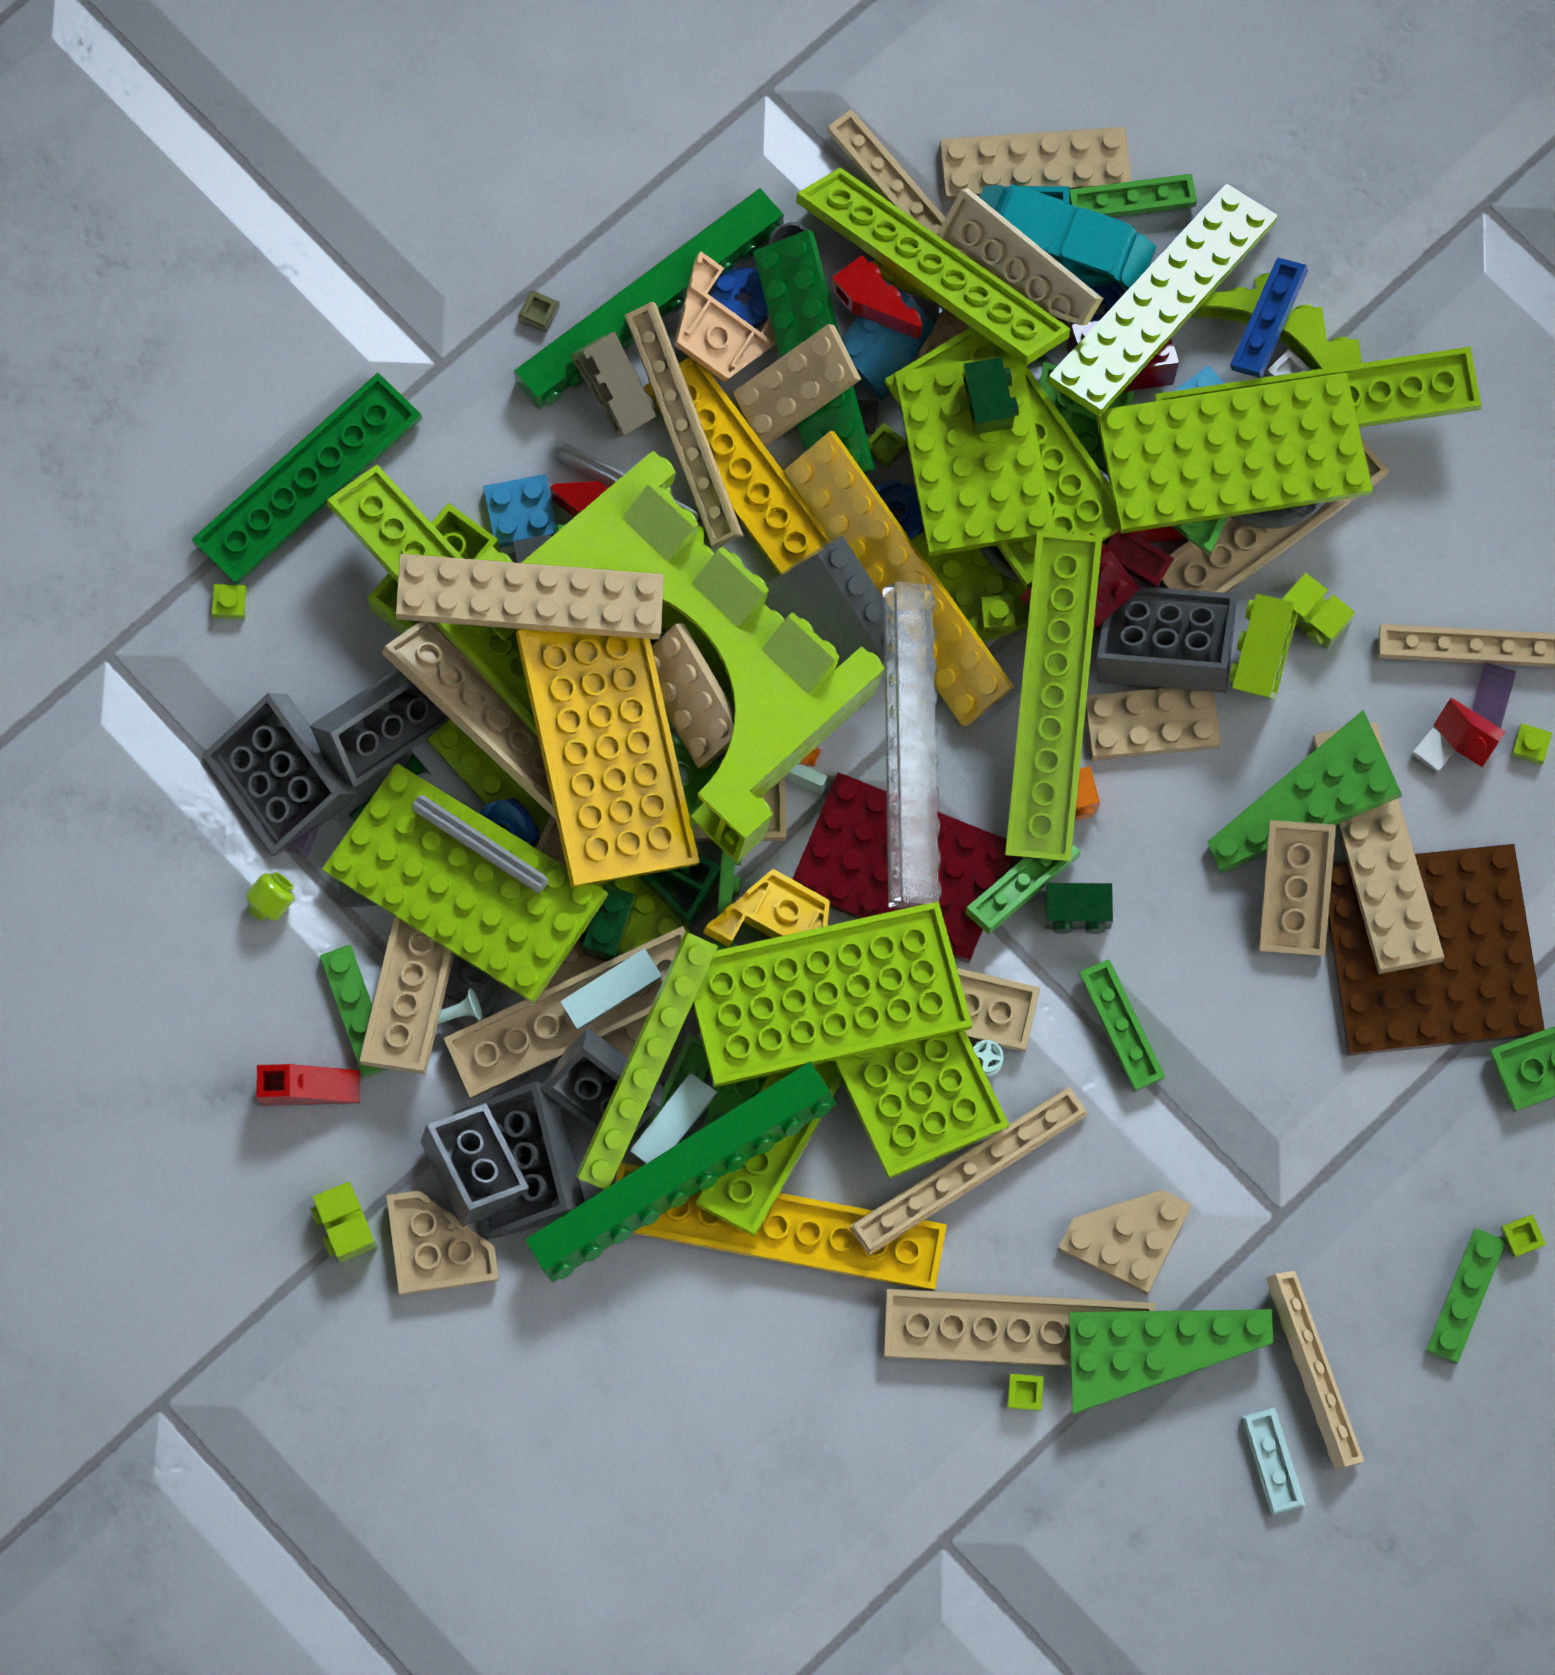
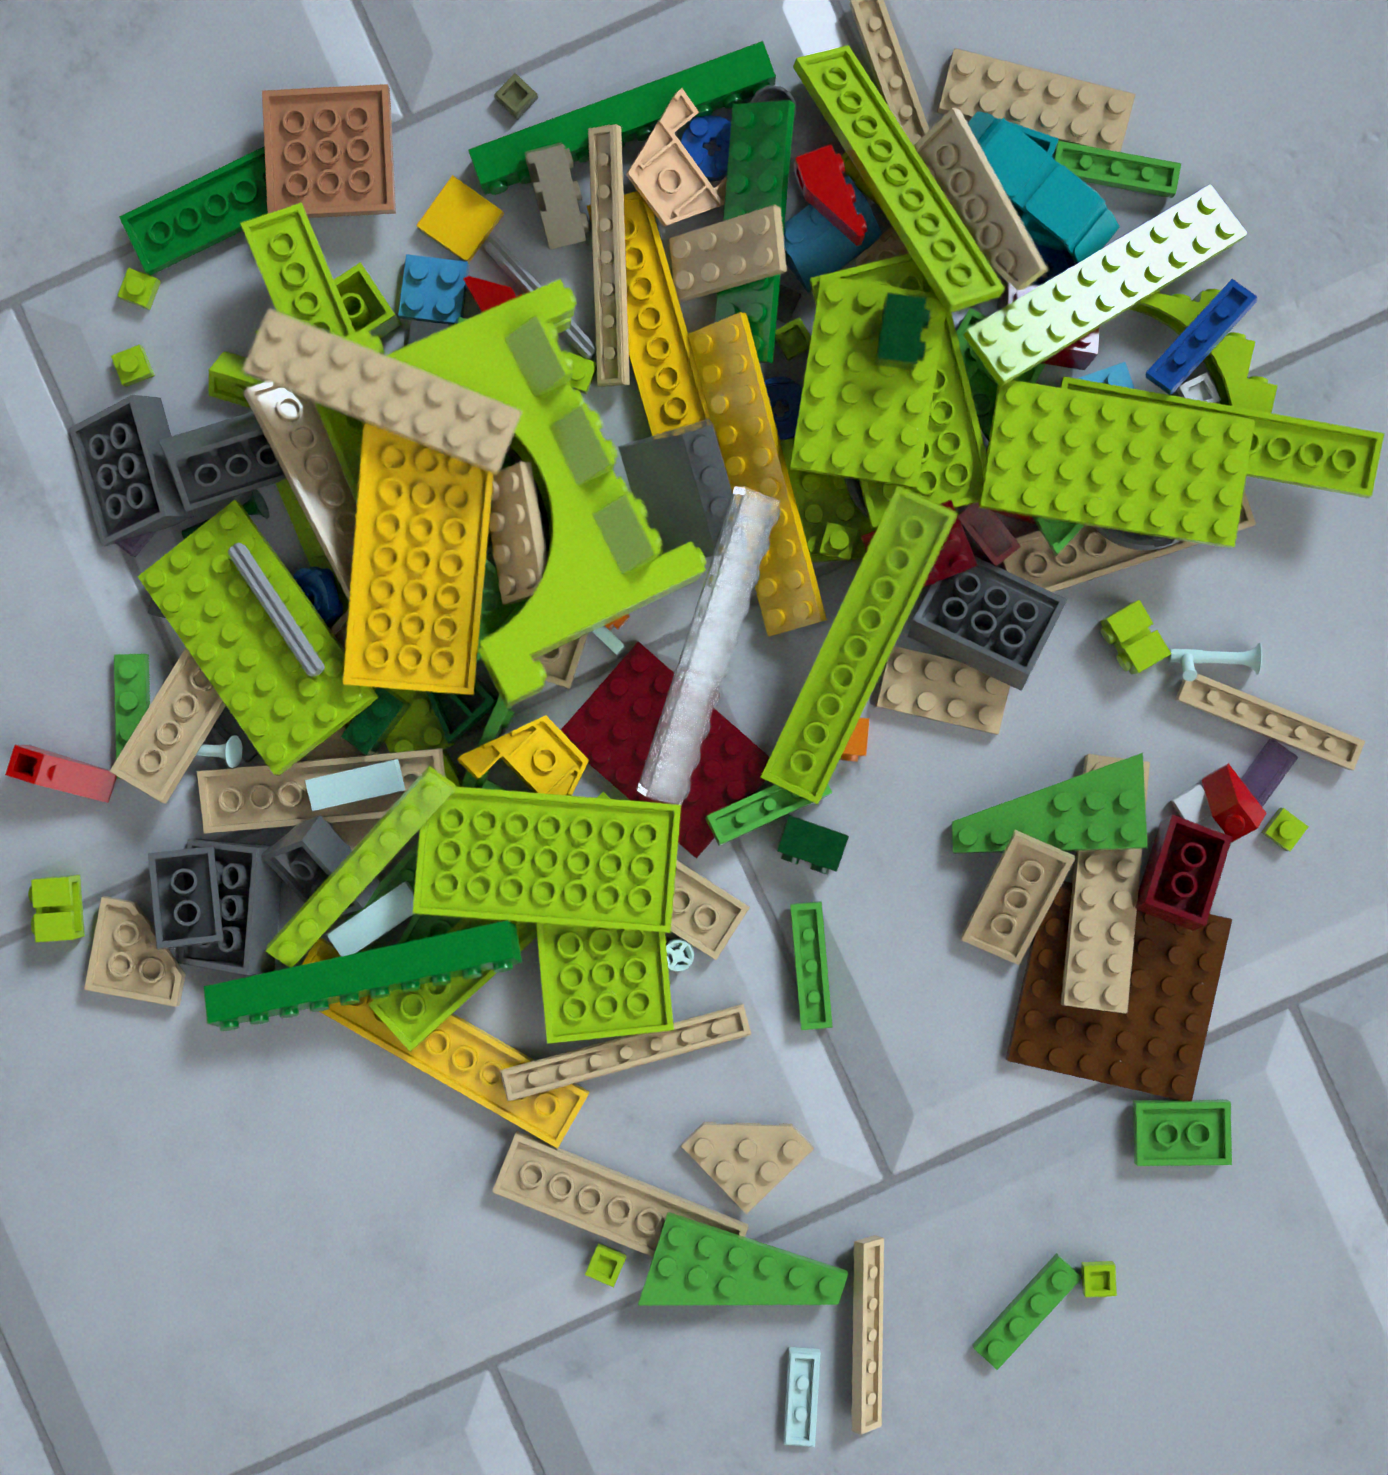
camera: 20 degrees right, 15 degrees up
(246, 675) = (132, 365): none -> lime plate
(270, 896) = (84, 585): lime head -> none
(360, 654) = (228, 379): none -> lime panel
(381, 412) = (329, 150): none -> nougat plate
(524, 438) = (460, 219): none -> yellow tile
(1264, 646) = (1072, 662): lime brick -> none
(1378, 612) = (1188, 657): none -> light aqua piece
(1446, 810) = (1183, 872): none -> dark red brick

